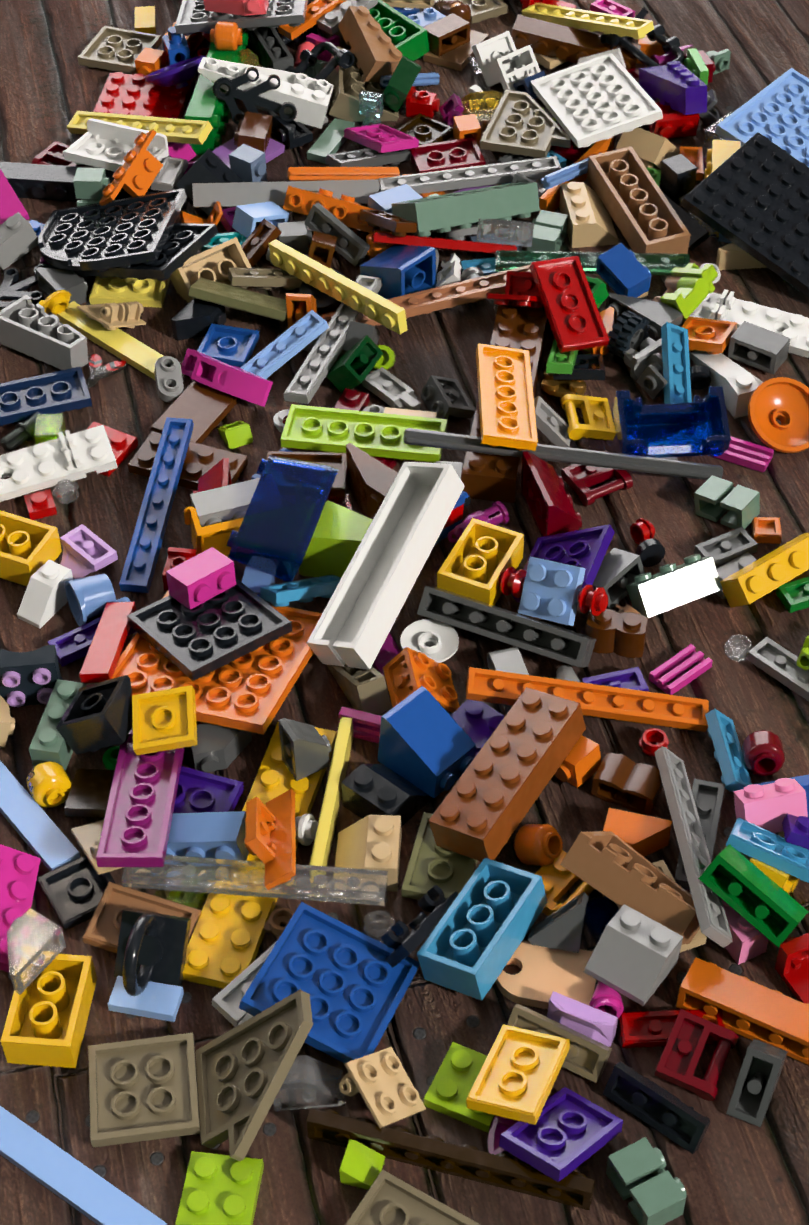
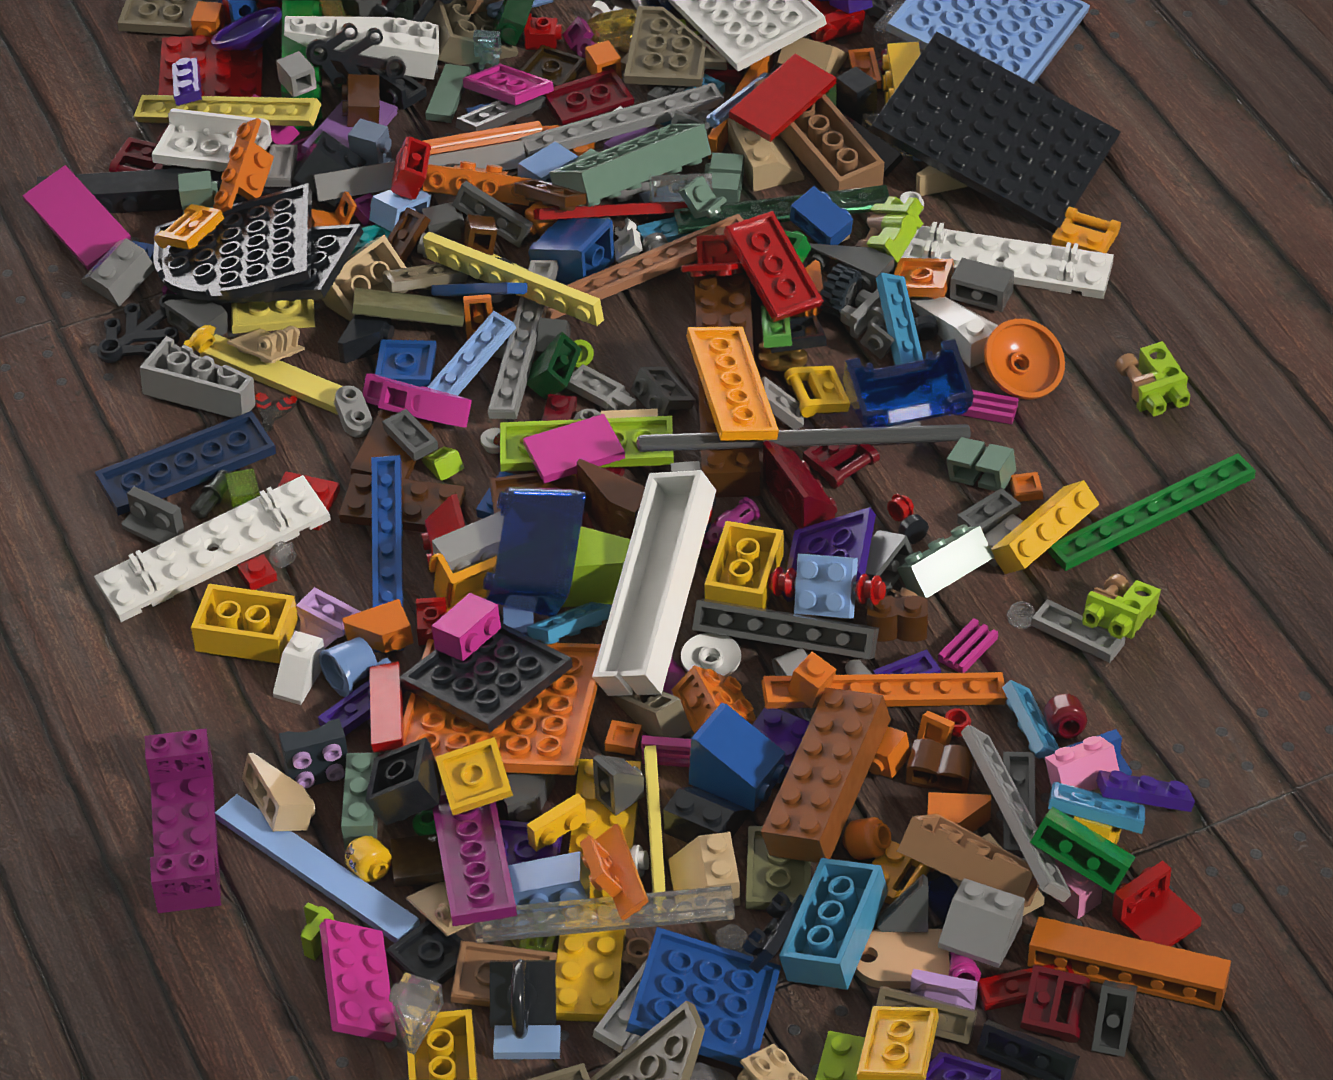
camera: 10 degrees left, 0 degrees up
(72, 214) = (190, 227): none -> light orange plate
(114, 102) = (186, 81): none -> plate
(127, 567) = (381, 627): none -> orange slope
(199, 102) = (296, 74): none -> light grey brick
(210, 404) = (410, 435): none -> dark grey plate
(234, 778) = (556, 822): none -> yellow plate
(273, 186) = (410, 168): none -> red brick
(319, 291) = (503, 288): none -> blue tile
(326, 706) = (623, 737): none -> orange plate
(363, 429) = (559, 449): none -> dark pink tile
(513, 676) = (811, 679): none -> orange brick
(519, 242) = (701, 198): none -> sand green bracket
(610, 170) = (782, 97): none -> red tile
(631, 745) = (935, 728): none -> orange plate

